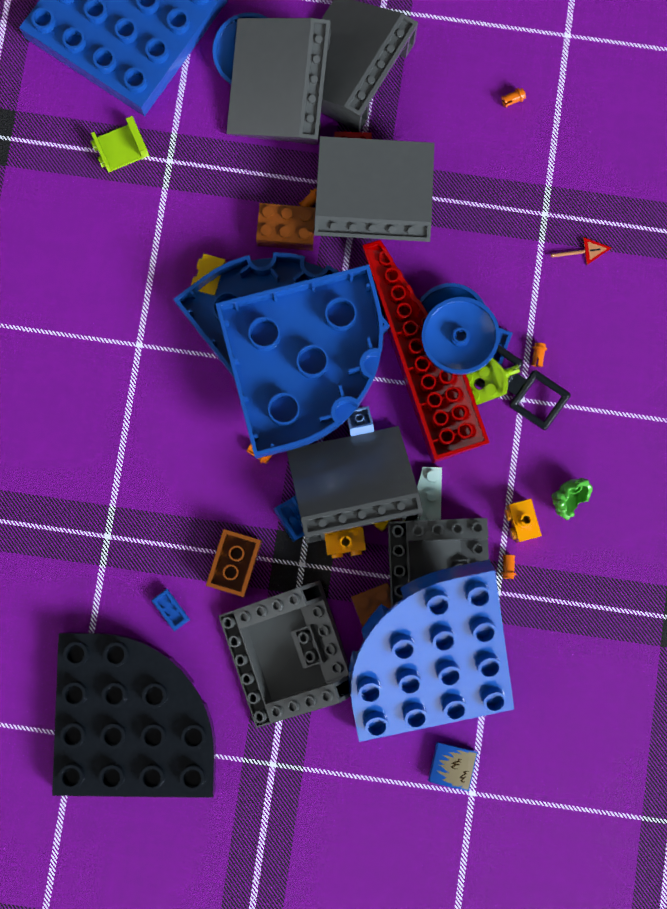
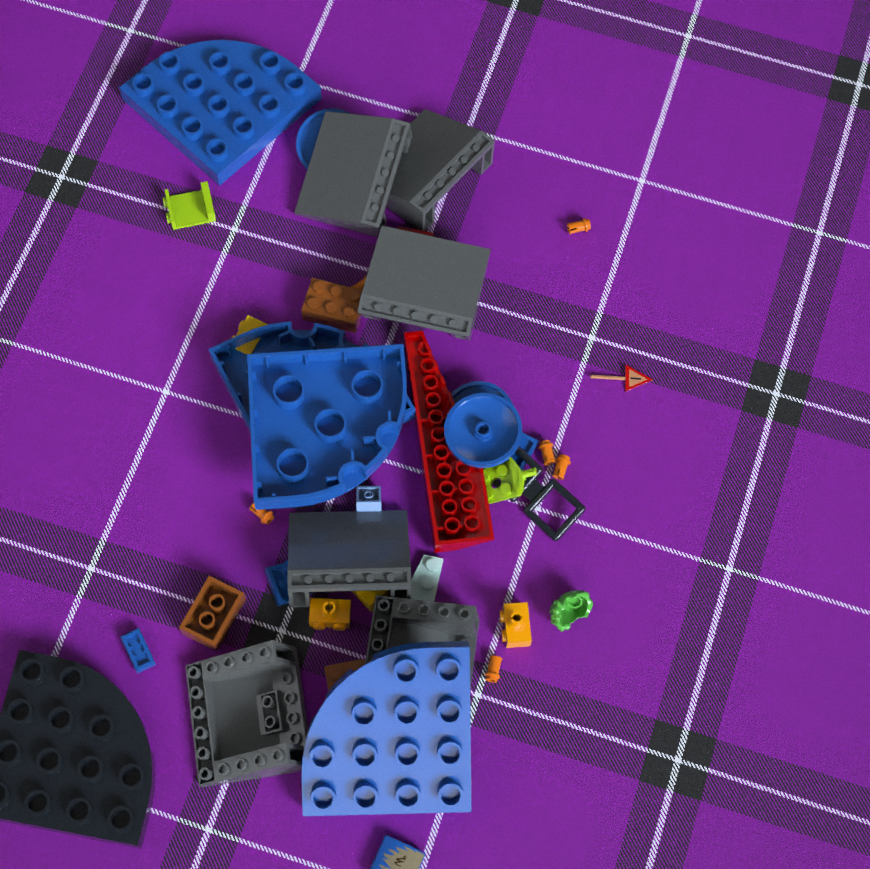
camera: 10 degrees right, 15 degrees down
(522, 342) = (547, 452): none -> orange pin

